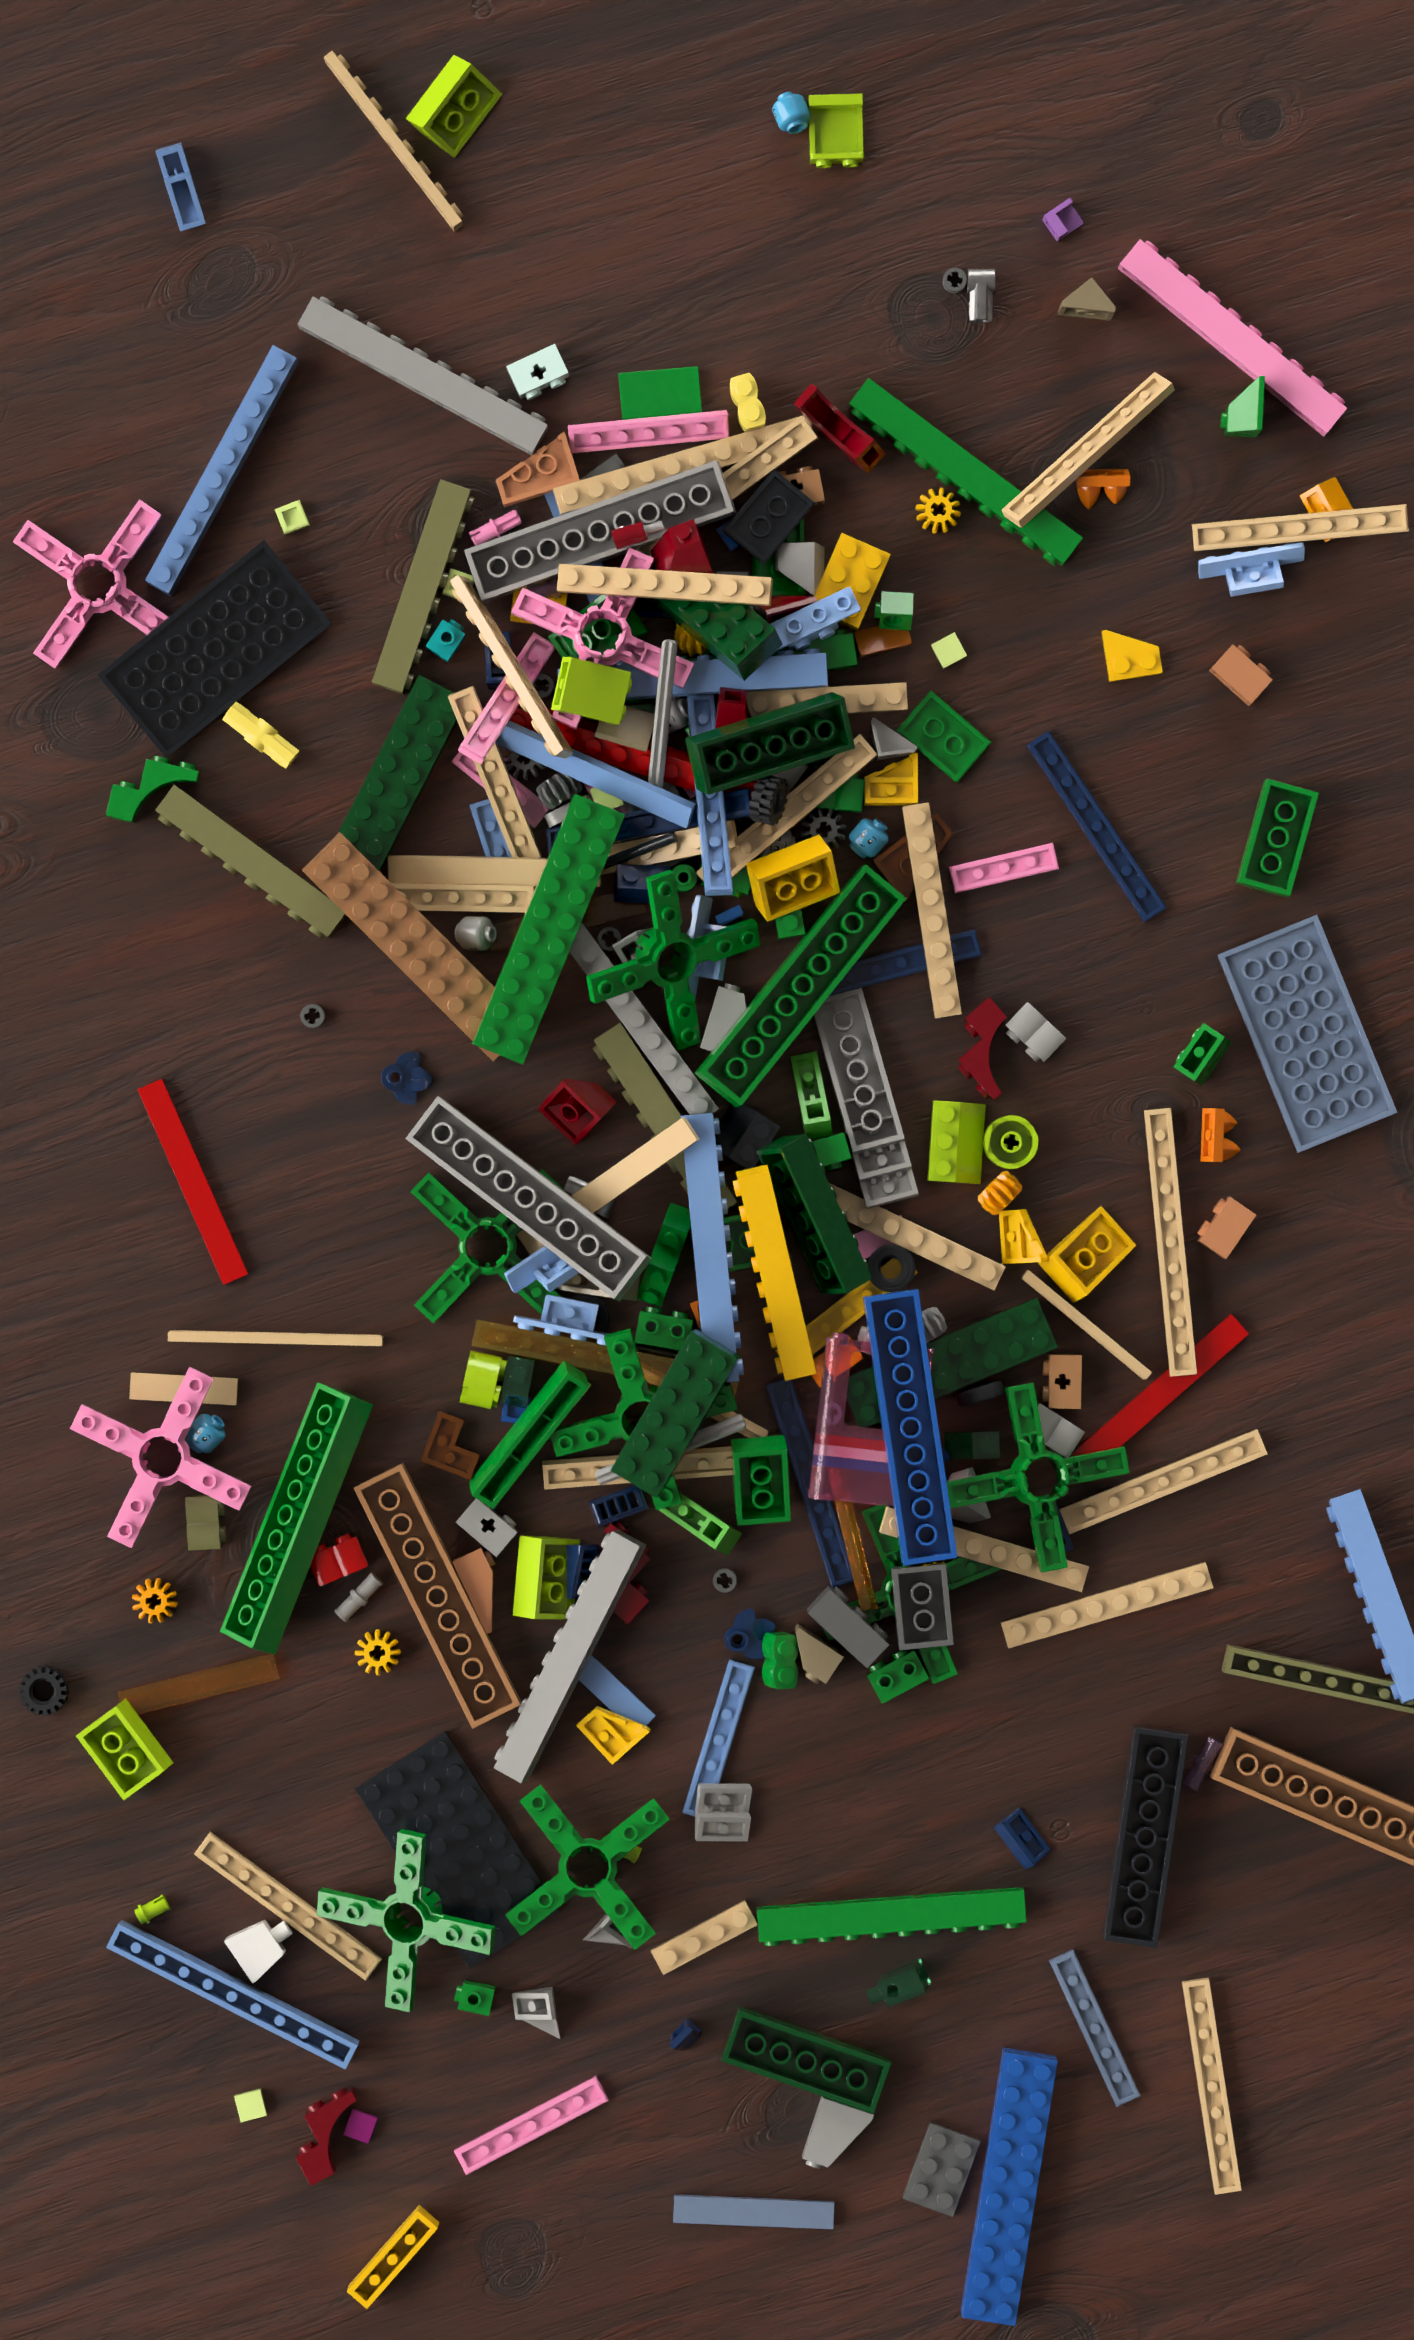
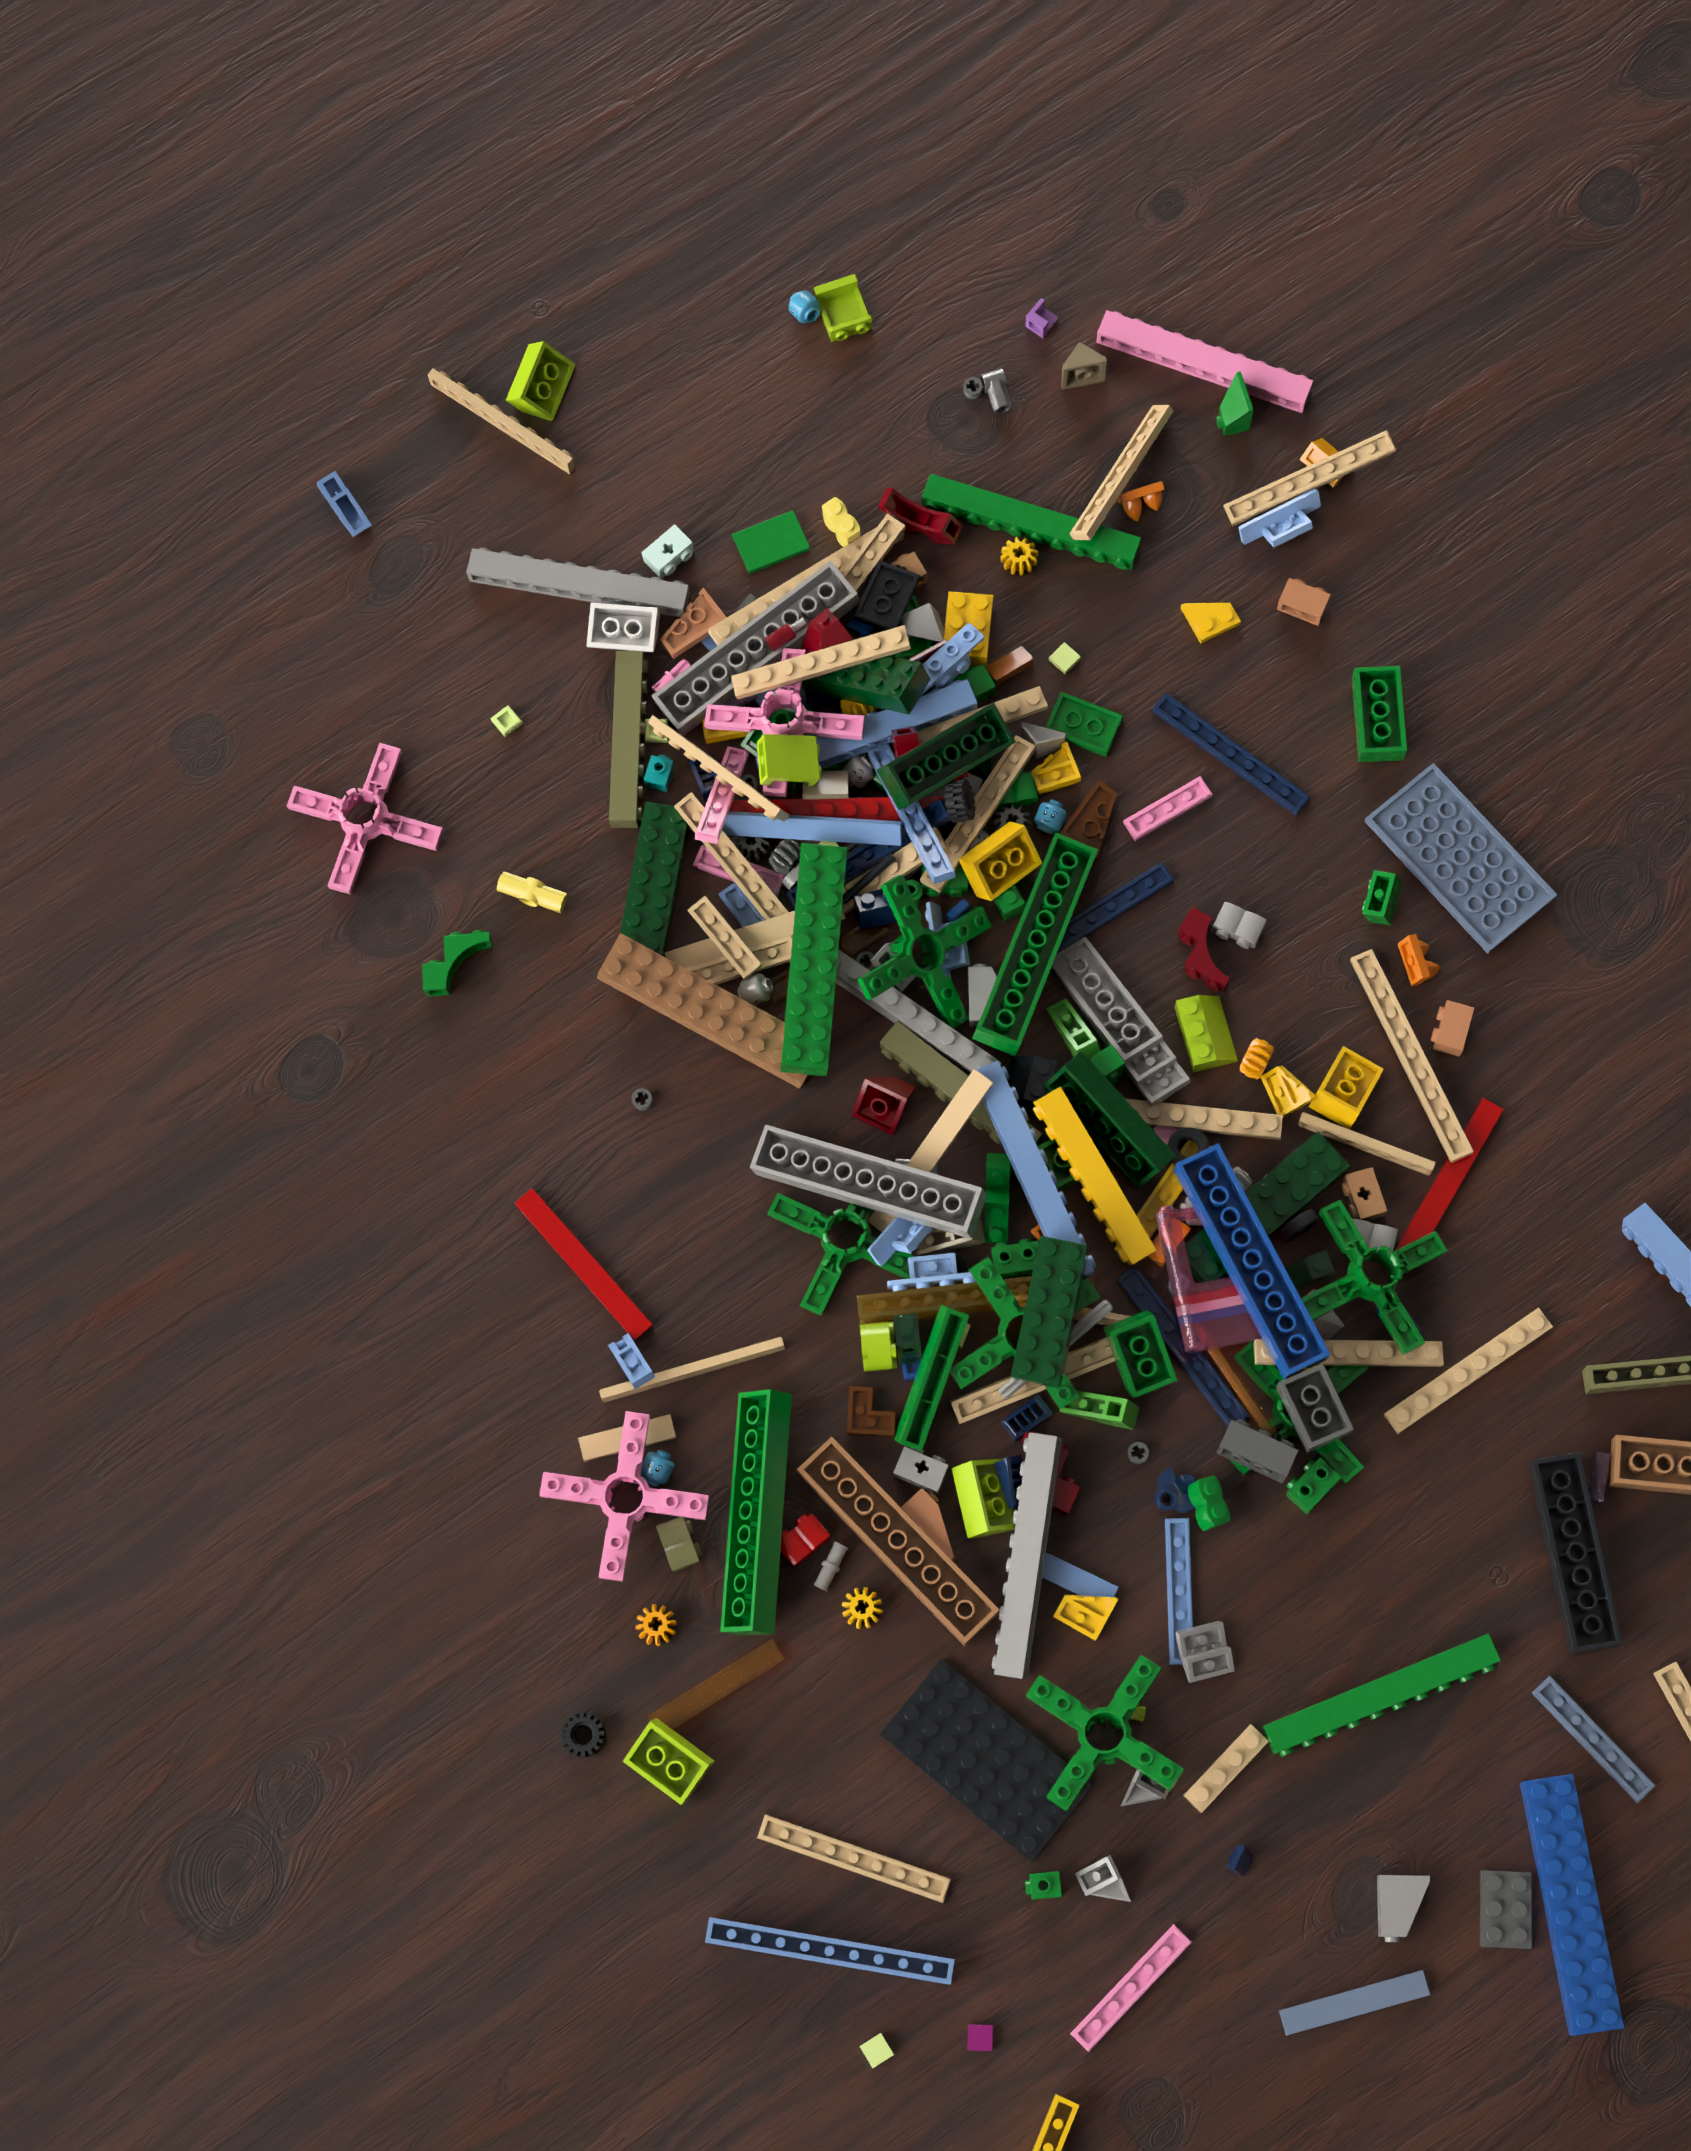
camera: 10 degrees left, 15 degrees down
(152, 1909) = (735, 1899): lime pin -> none
(212, 1310) = (631, 1361): none -> medium blue plate
(214, 649) = (473, 836): black plate -> none
(222, 470) = (439, 702): medium blue brick -> none
(251, 861) = (554, 992): olive brick -> none
(258, 1947) = (839, 1902): white torso -> none
(316, 2158) = (943, 2039): dark red arch -> none
(409, 1890) = (936, 1834): piece -> none
(411, 1077) = (739, 1124): dark blue plate -> none
(456, 454) = (623, 627): none -> white slope
(458, 866) = (725, 938): none -> tan plate
(648, 431) = (770, 569): bright pink tile -> none
(662, 712) = (851, 759): light grey axle -> none
(806, 2059) = (1353, 1846): dark green brick -> none
(817, 1656) = (1238, 1487): dark tan slope -> none
(894, 610) = (1011, 639): brick -> none
(909, 1978) = (1419, 1744): clear green torso -> none
(931, 910) = (1121, 856): tan plate -> none
(1002, 1129) = (1260, 1008): lime brick -> none
(1022, 1838) = (1469, 1593): dark blue slope -> none
(1163, 1481) = (1478, 1251): tan plate -> none

